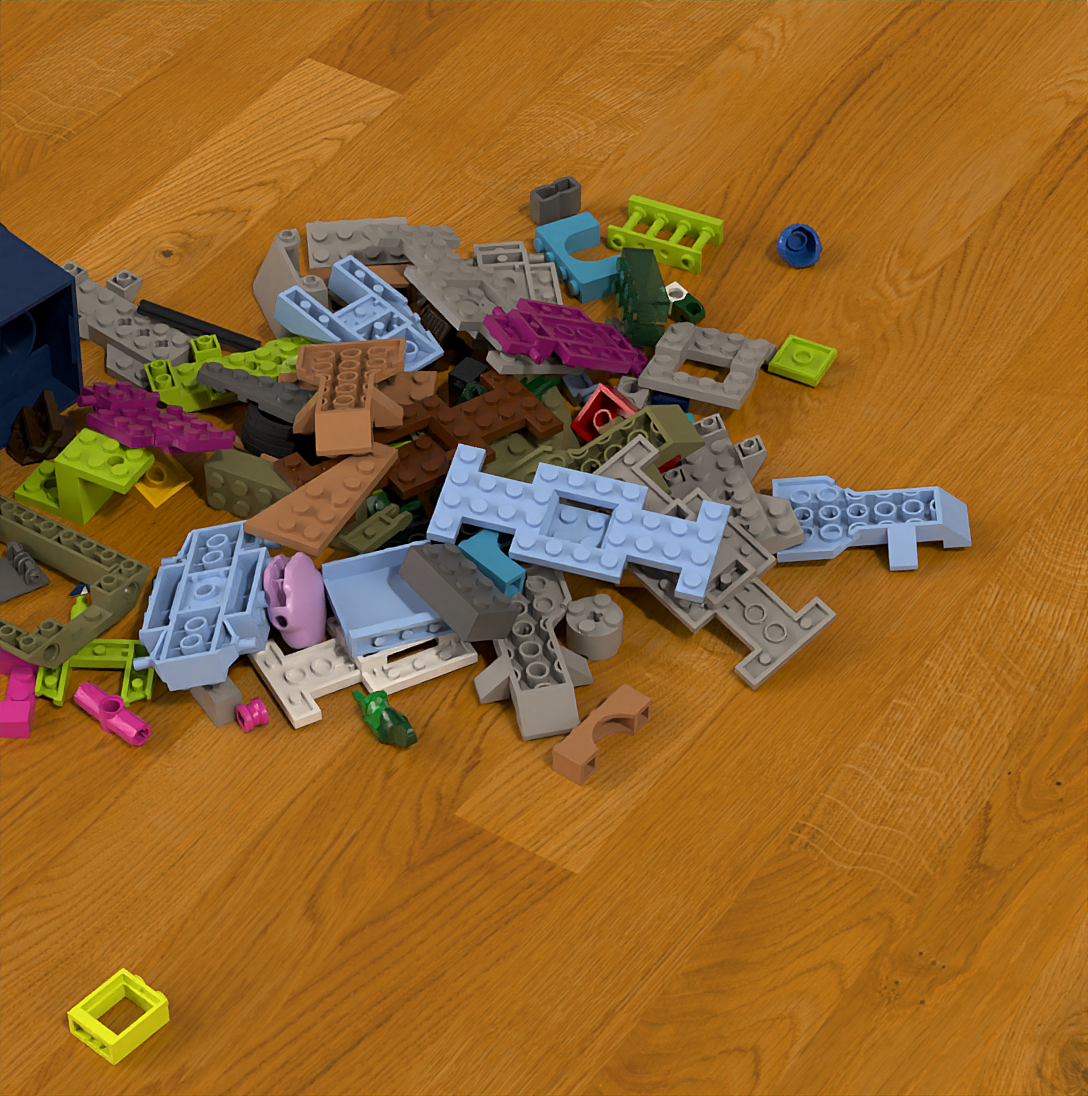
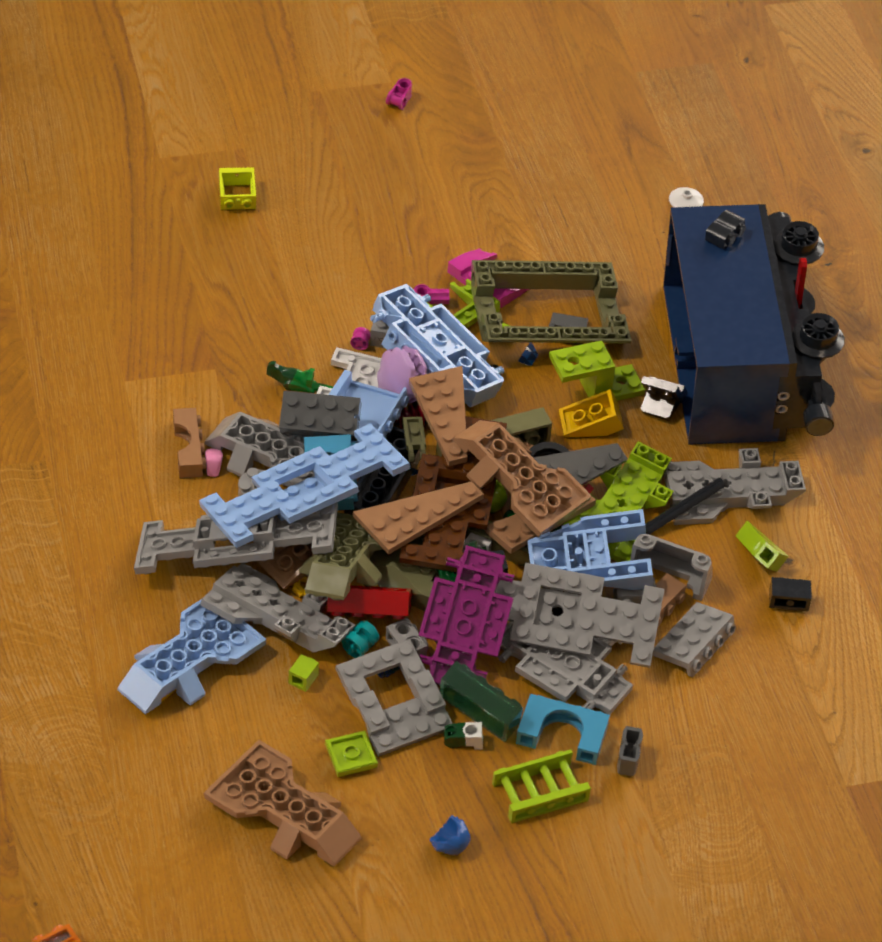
camera: 130 degrees right, 5 degrees up
(135, 421) = (593, 401): magenta piece -> none
(183, 259) = (761, 547): none -> lime slope
(223, 213) = (790, 594): none -> black brick
(501, 433) = (407, 519): none -> medium nougat wing
(591, 697) = (213, 461): none -> bright pink hair
(772, 439) = (303, 672): none -> lime brick
(926, 368) = (265, 787): none -> medium nougat piece

